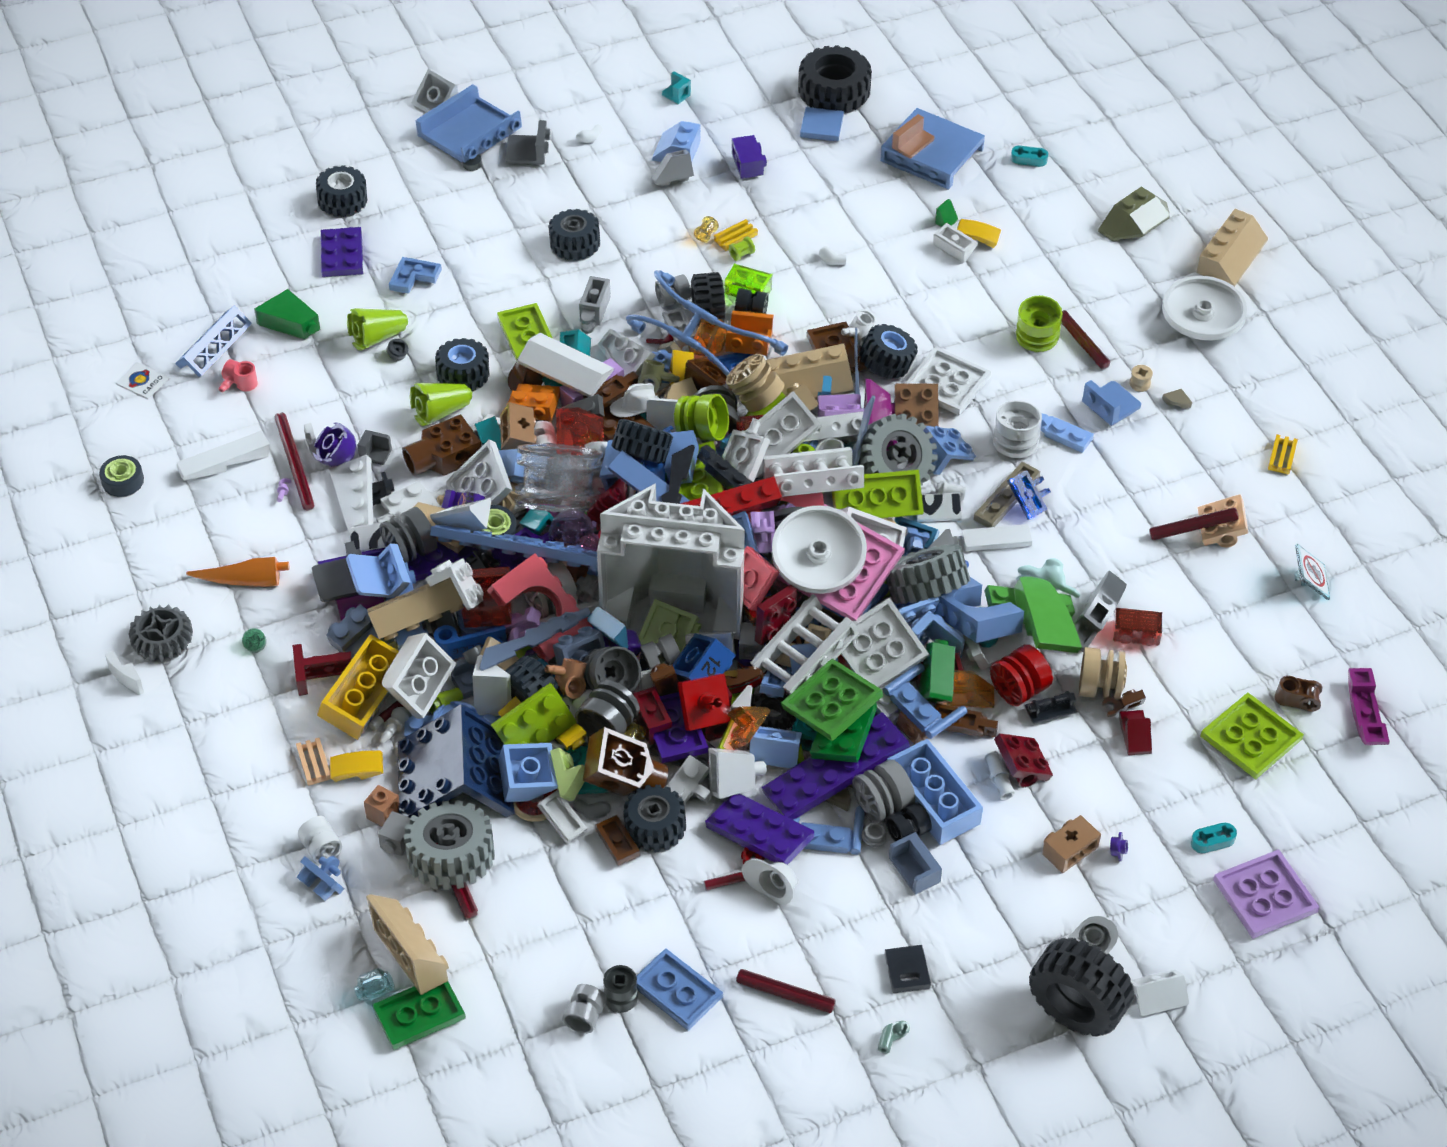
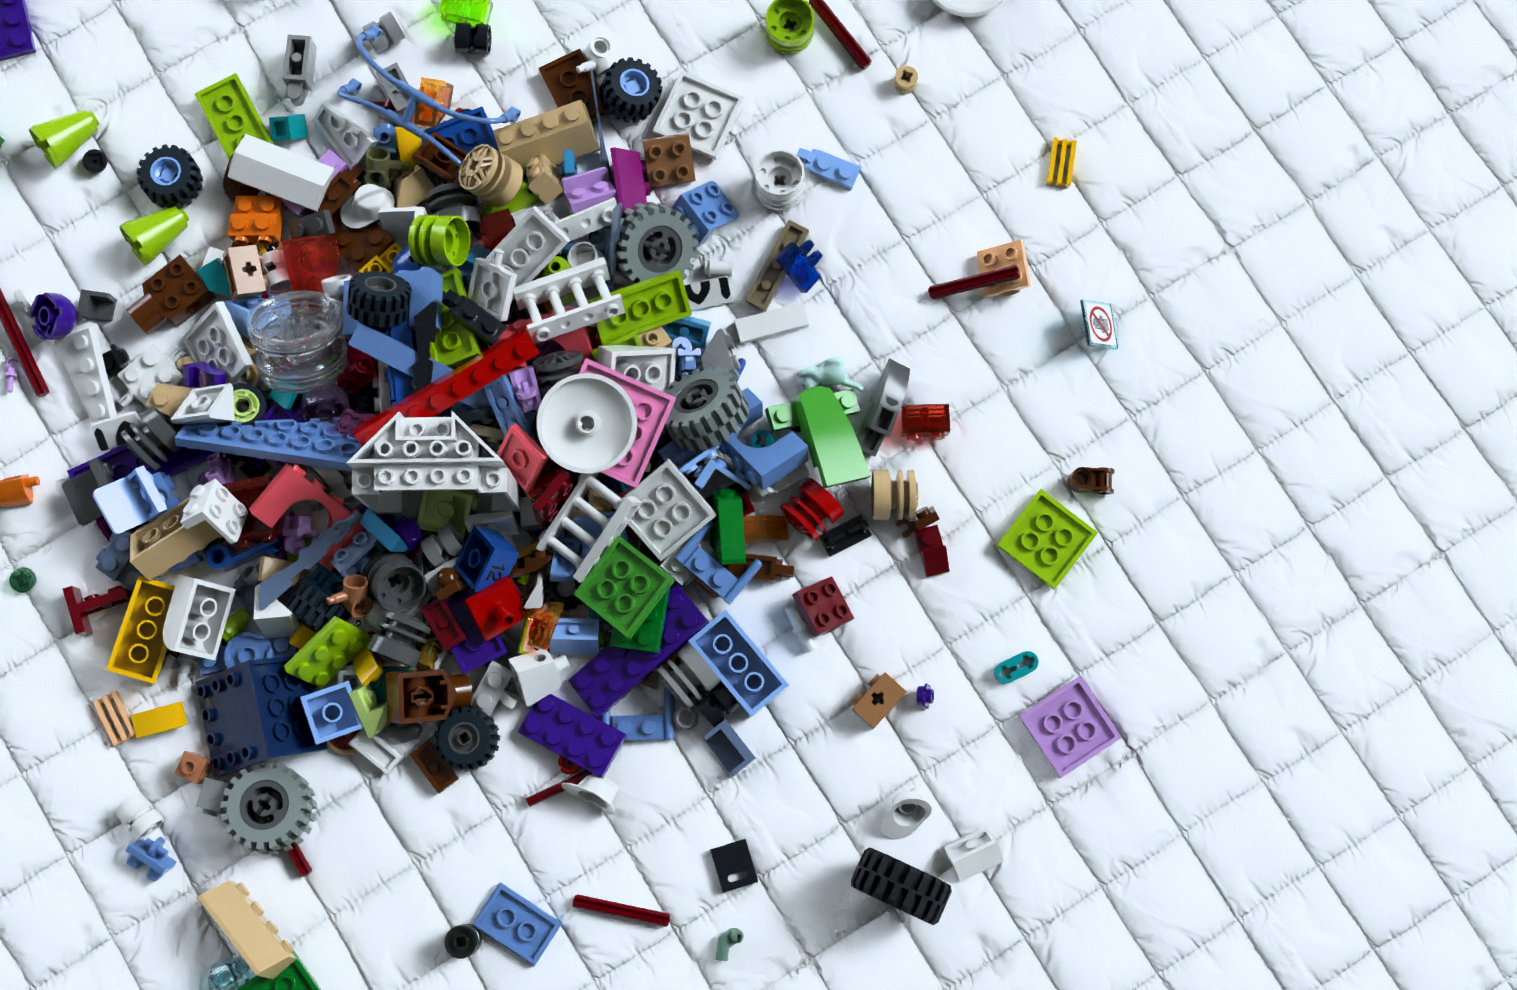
camera: 10 degrees left, 30 degrees up
(411, 270) = (88, 43): medium blue plate -> none
(584, 1008) = (428, 976): light grey wheel -> none
(708, 293) = (423, 47): black tyre -> none
(752, 322) = (477, 84): orange panel -> none
(1110, 401) = (876, 118): medium blue bracket -> none
(1177, 398) = (946, 101): dark tan tile -> none
(1365, 707) = (1159, 489): magenta slope -> none

